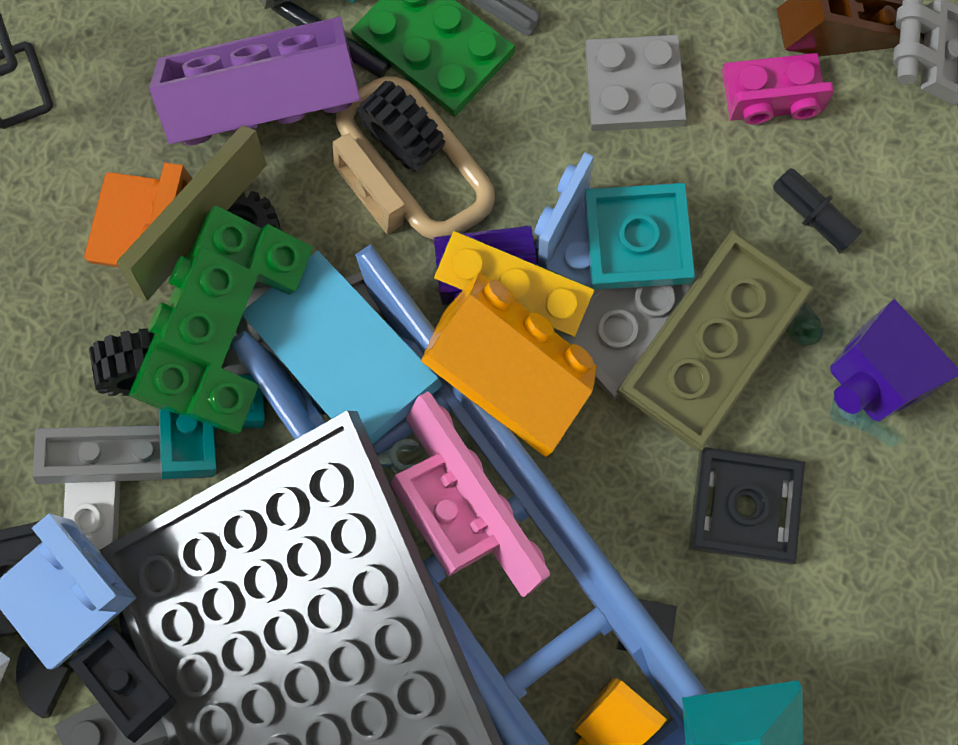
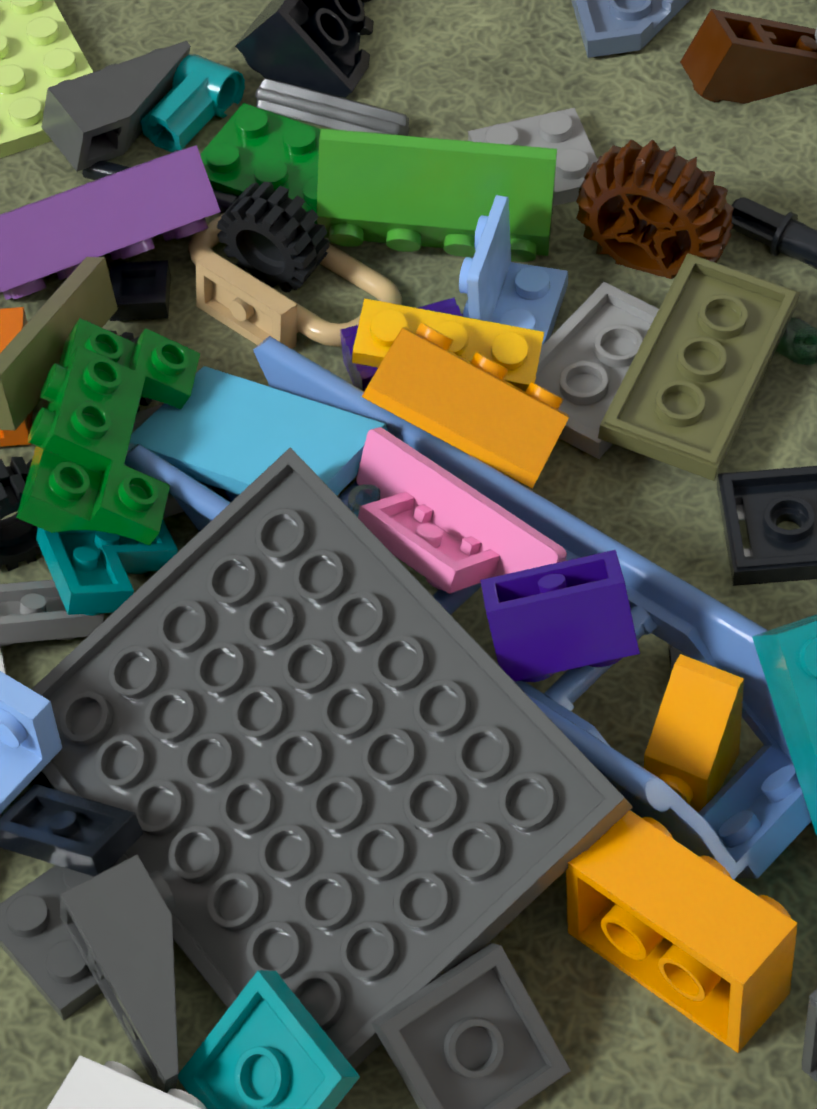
camera: 15 degrees left, 25 degrees down
(290, 146) = (141, 289): none -> black plate
(528, 640) = (560, 617): none -> dark purple brick
(538, 121) = (432, 191): none -> bright green slope
(638, 236) = (582, 281): teal plate -> none
(721, 175) = (653, 209): none -> reddish brown gear
(775, 88) = (709, 132): dark pink bracket -> none

